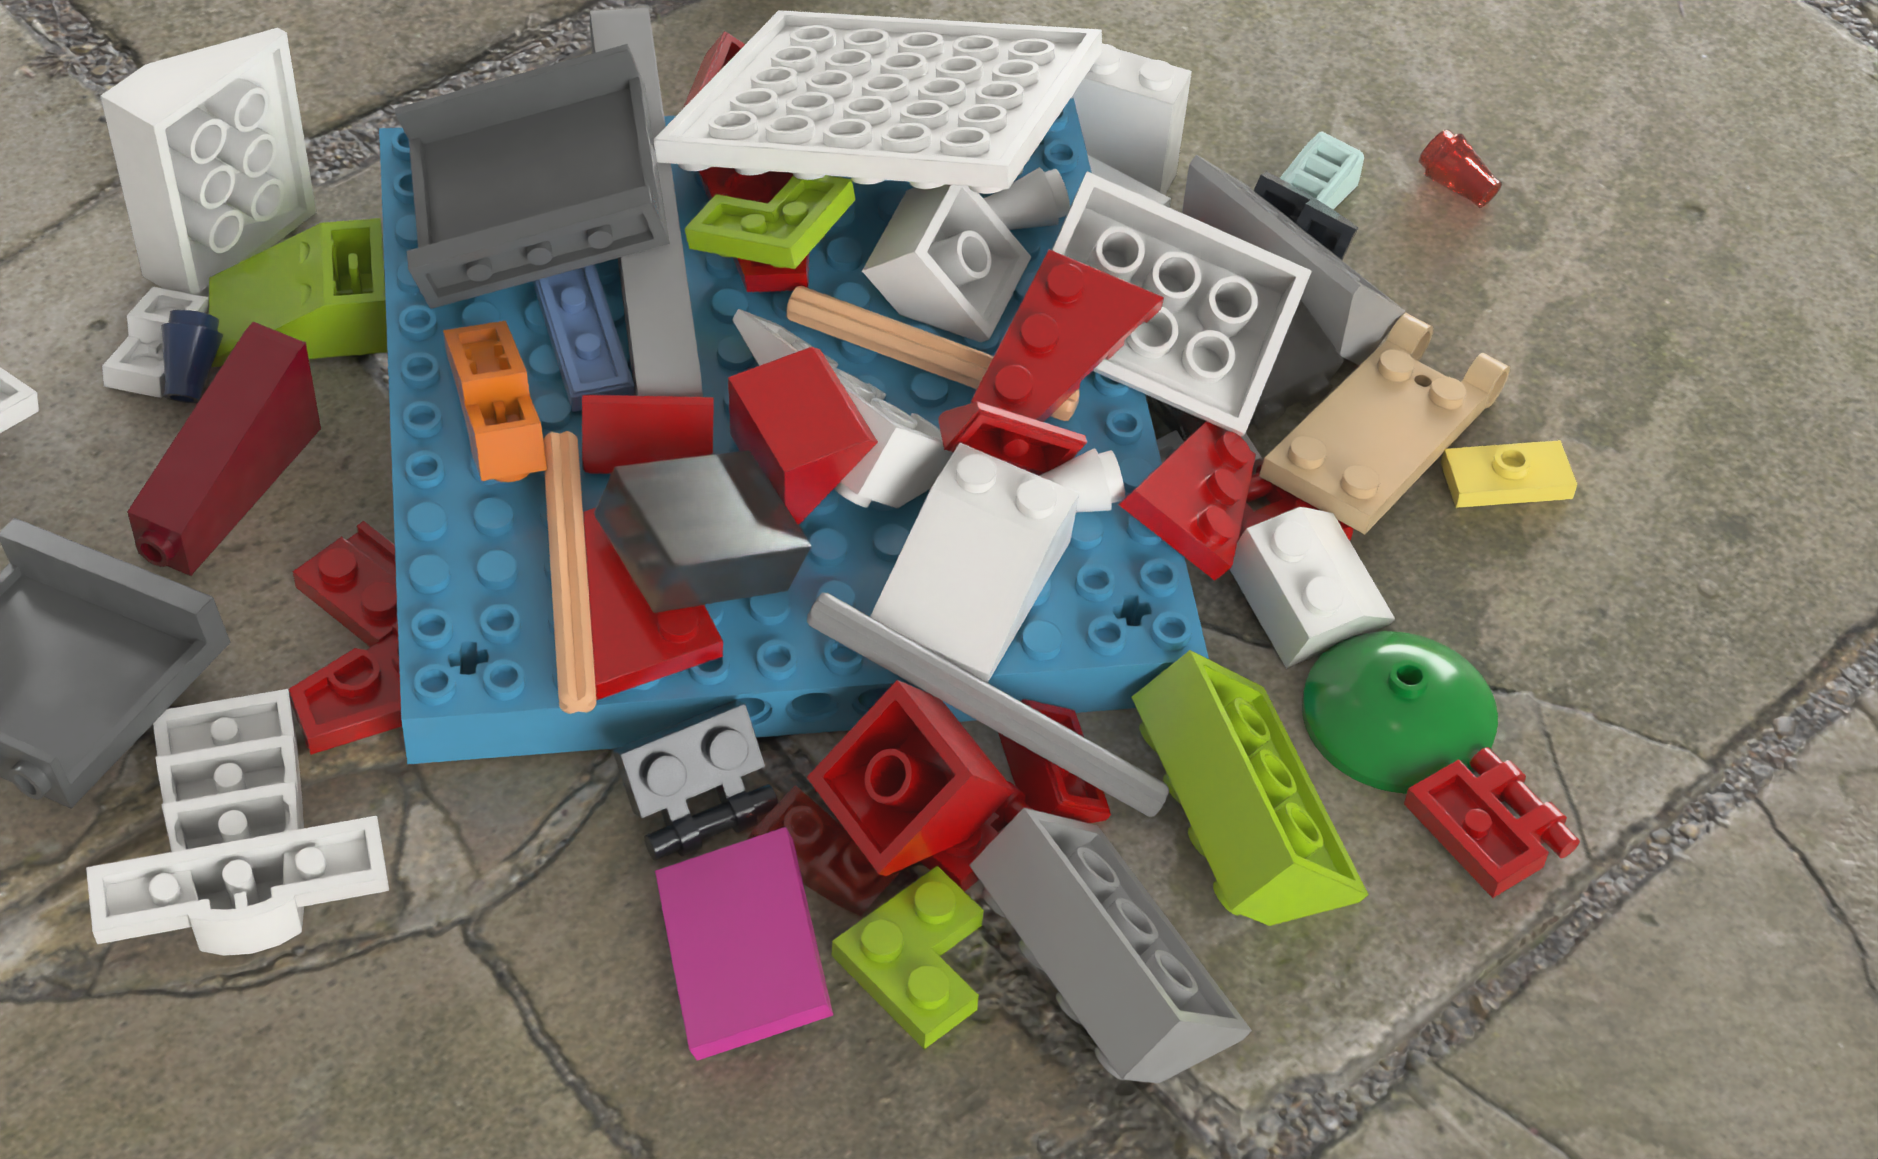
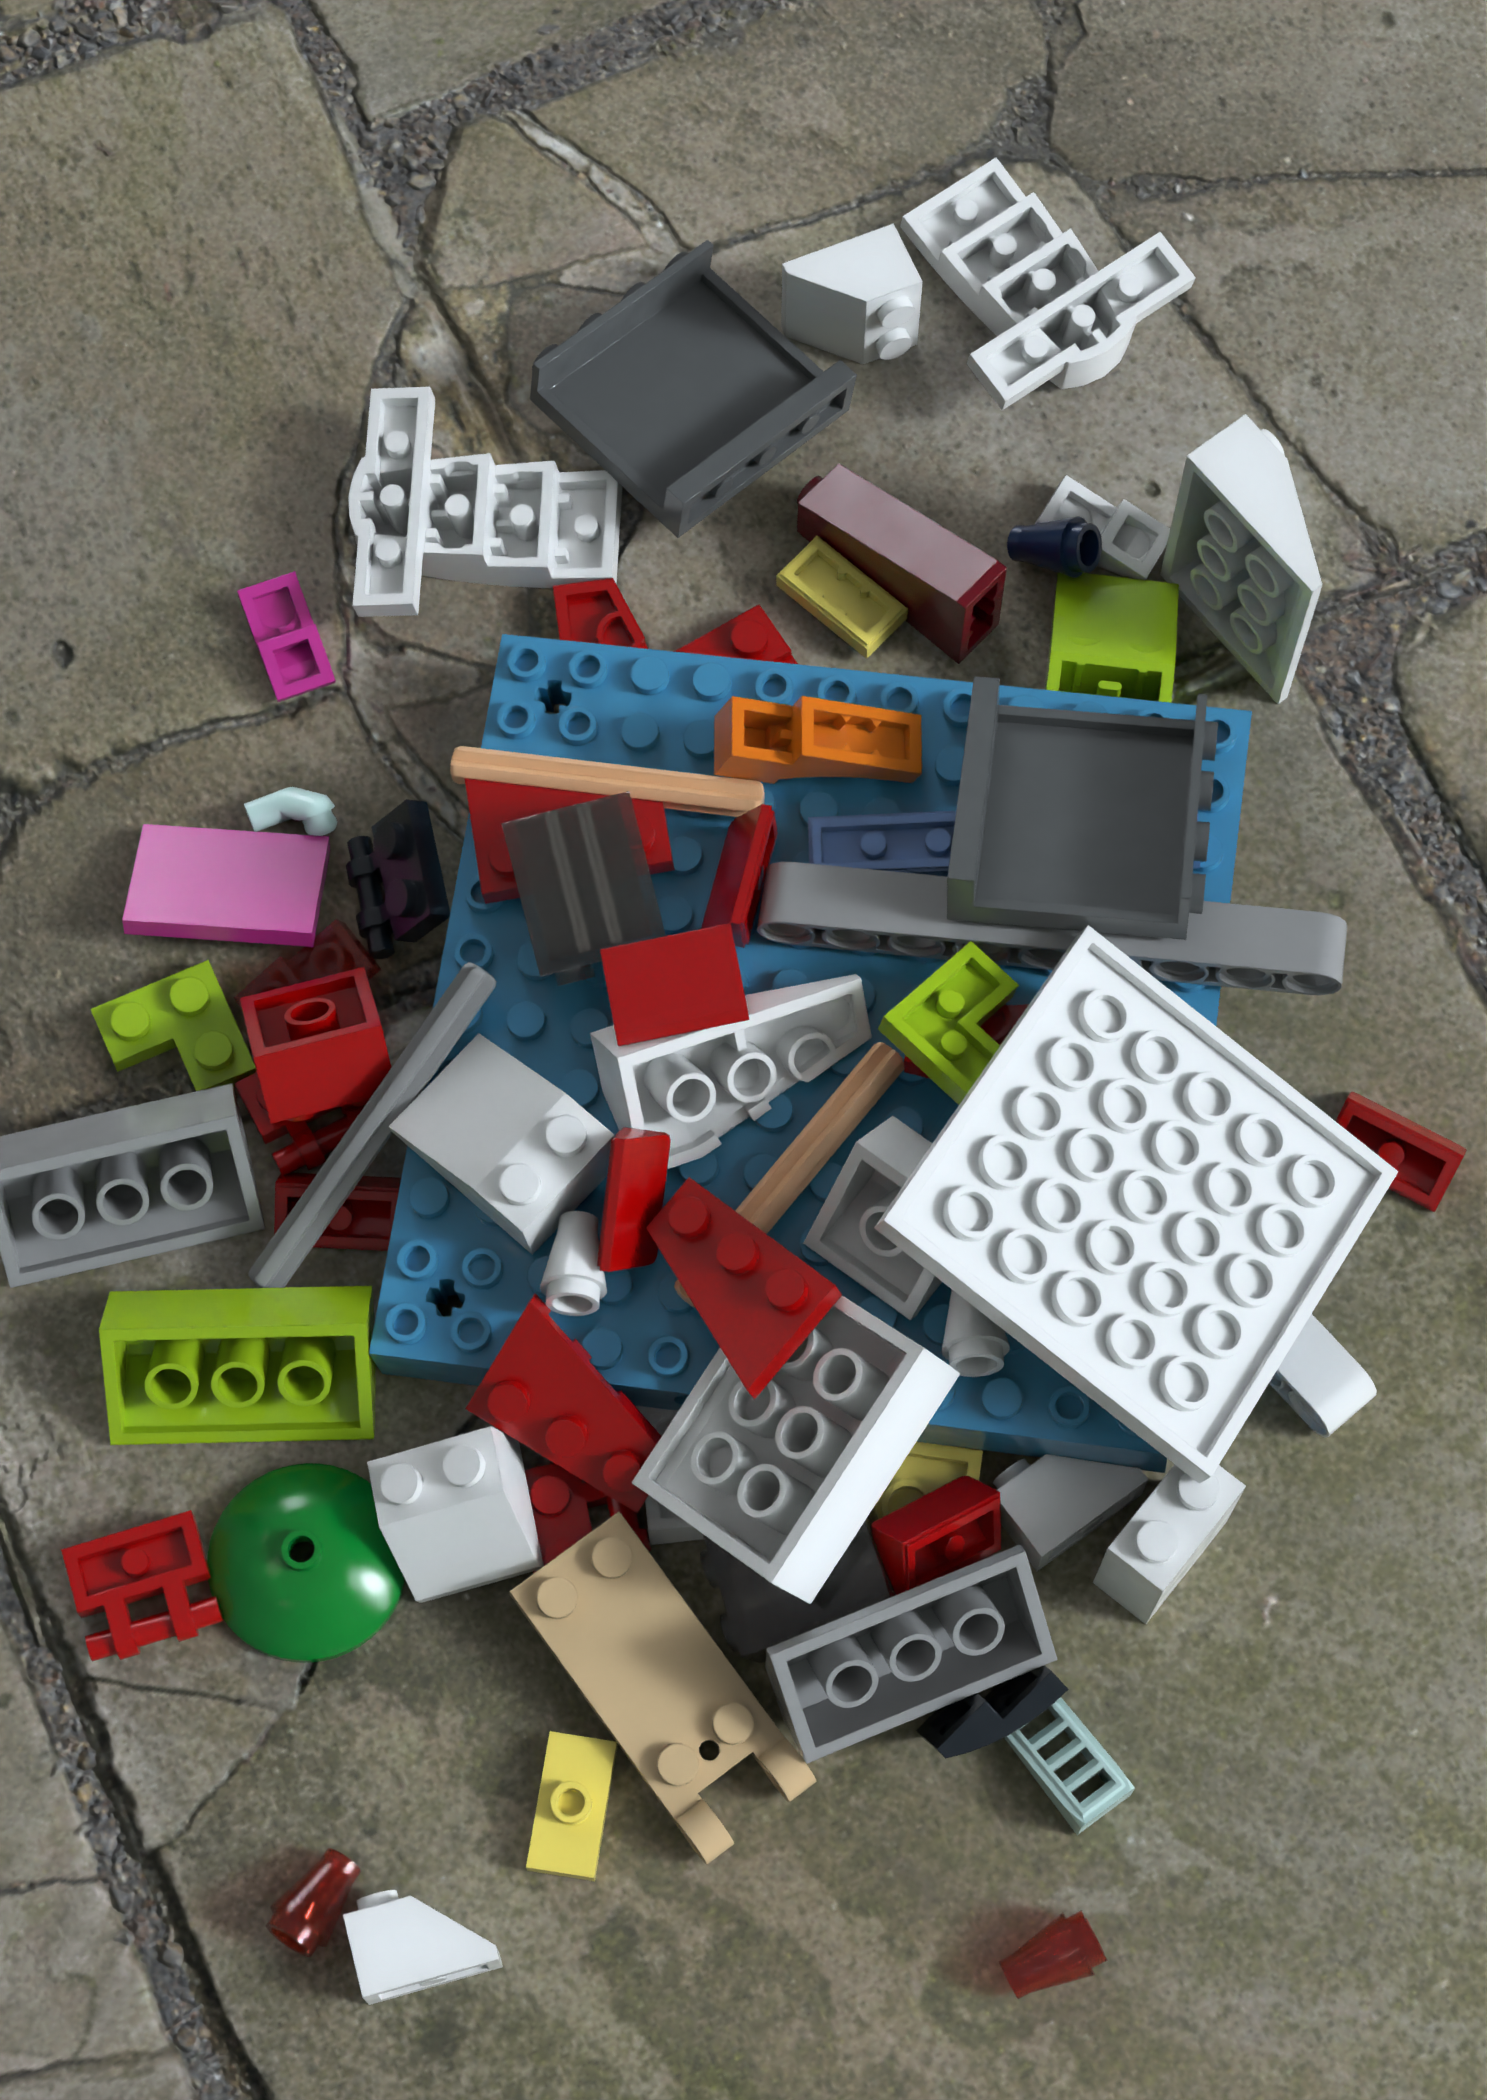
camera: 110 degrees right, 20 degrees up
(270, 511) = (841, 597): none -> light yellow plate
(425, 979) = (286, 636): none -> dark pink slope
(623, 912) = (295, 804): none -> light aqua arm
(1690, 538) = (411, 1947): none -> white slope
(1690, 616) = (312, 1905): none -> clear red cone

